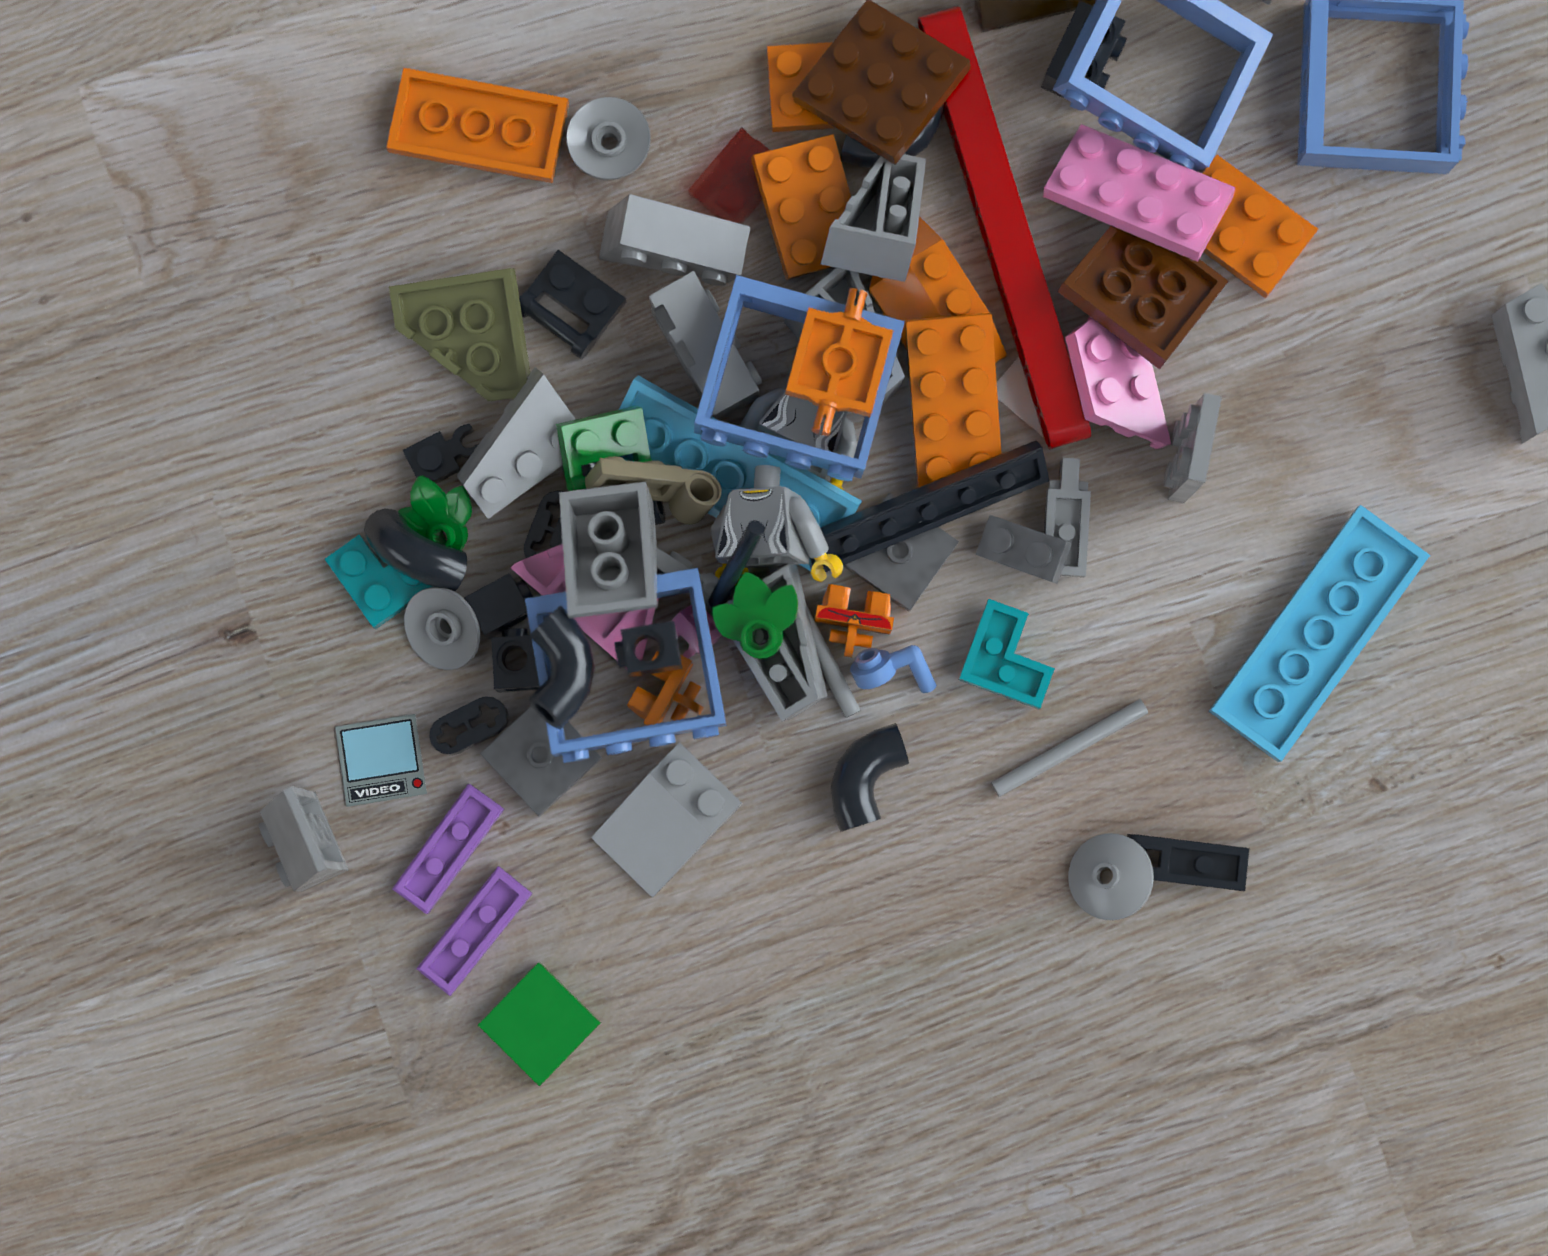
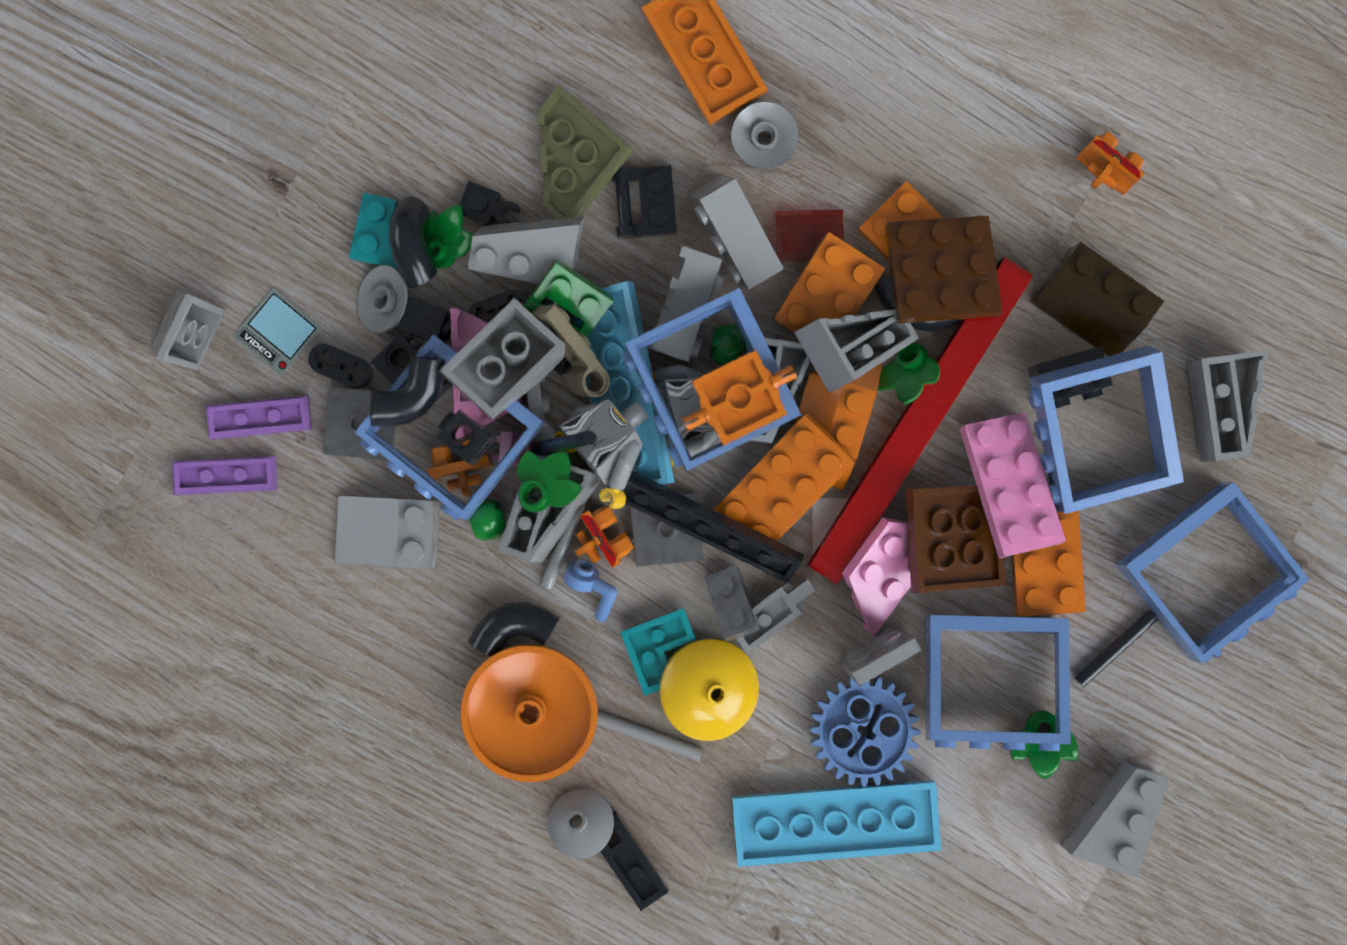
camera: 50 degrees right, 5 degrees up
(539, 1024) = (203, 561): green tile -> none
(743, 712) = (488, 521): none -> green piece
(774, 341) = (727, 344): none -> green piece
(951, 196) = (909, 373): none -> green plate
(962, 830) = (529, 712): none -> orange dish
(1069, 657) = (693, 676): none -> yellow dish
(1290, 519) = (891, 745): none -> medium blue gear
(1355, 424) = (982, 739): none -> medium blue window
(1378, 231) = (1116, 648): none -> black bar
(1416, 379) = (1044, 762): none -> green plate

